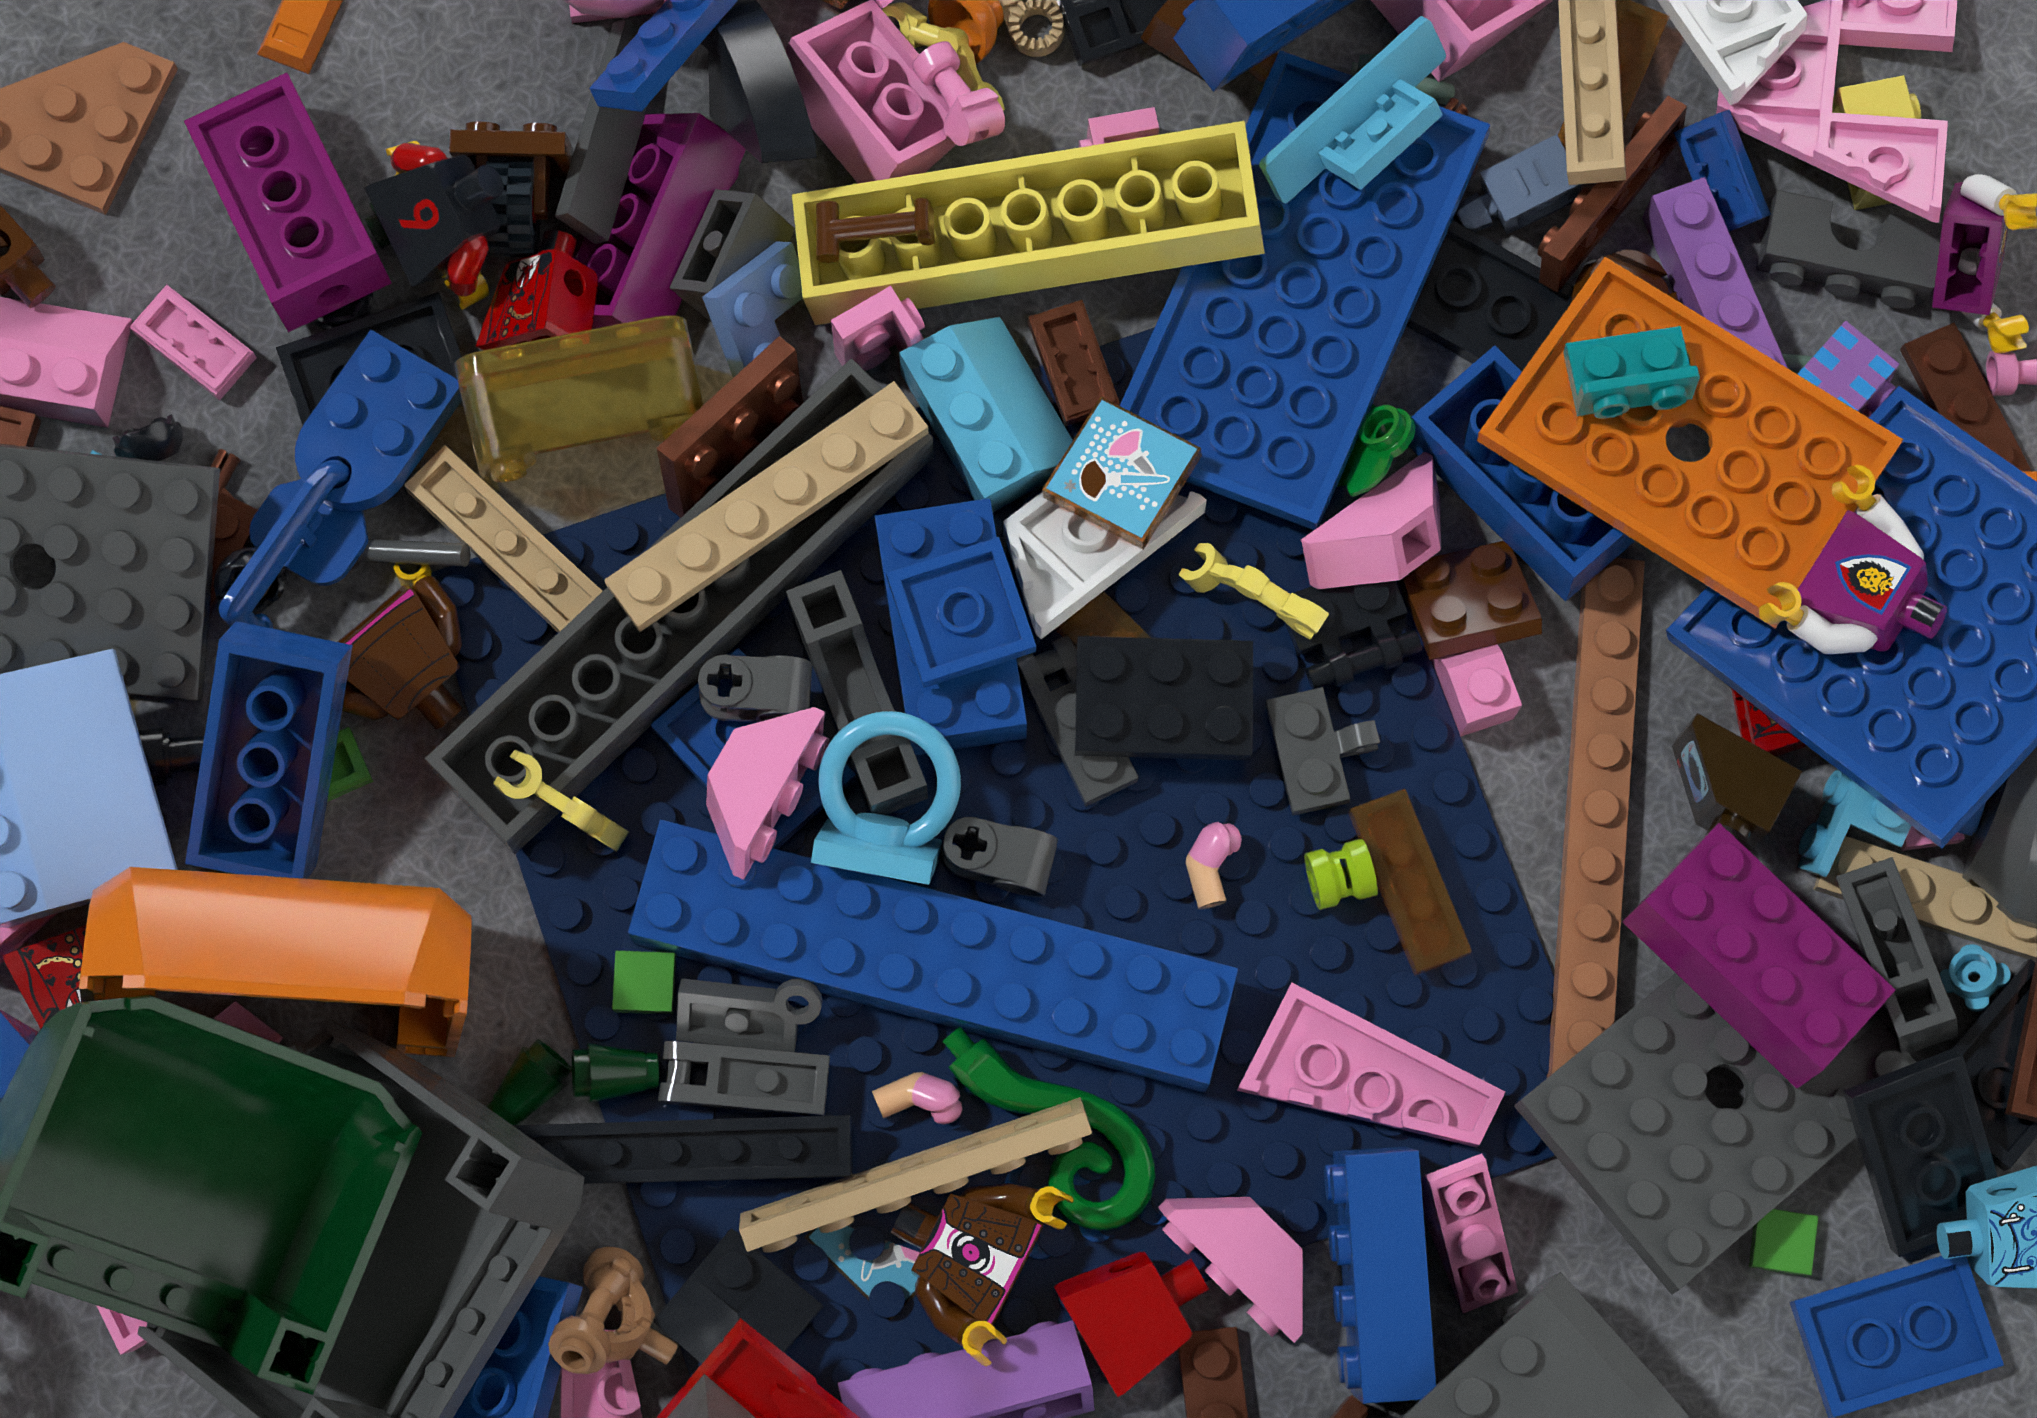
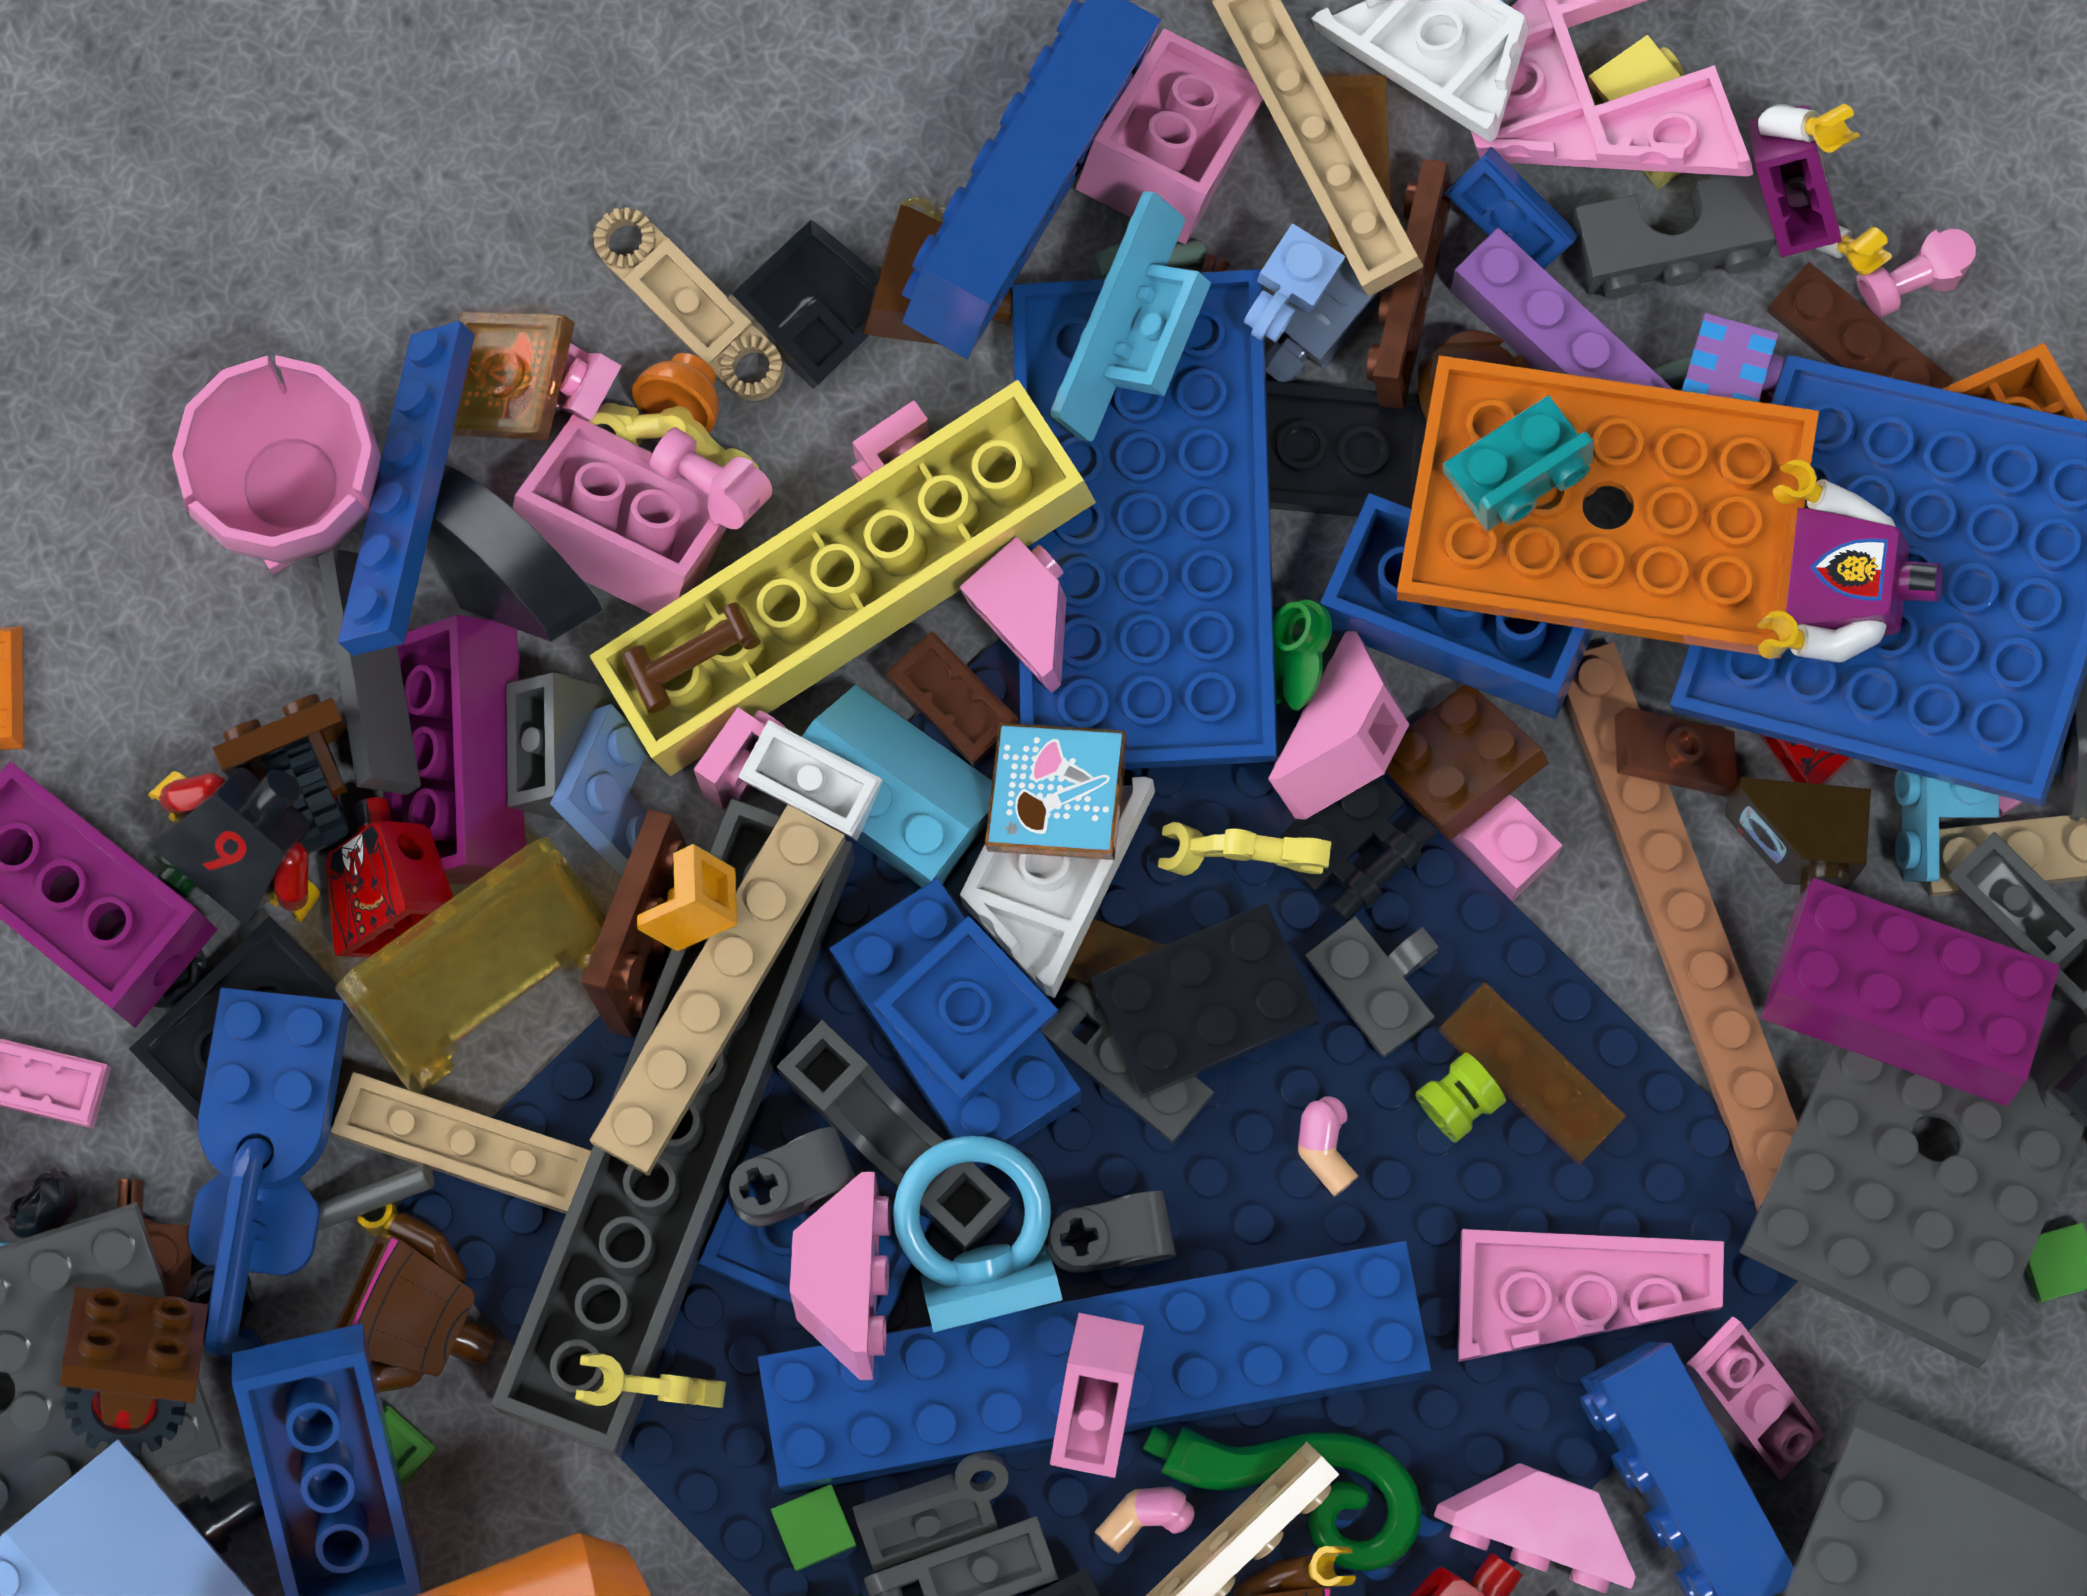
camera: 20 degrees left, 0 degrees up
(149, 593) = (130, 1366): none -> reddish brown plate
(783, 427) = (697, 905): none -> light orange panel
(920, 974) = (1096, 1395): none -> bright pink slope
(922, 371) = (811, 780): none -> white slope
(1165, 311) = (1023, 606): none -> bright pink slope
(1516, 138) = (1296, 273): none -> light blue plate
(1653, 672) = (1675, 751): none -> copper plate

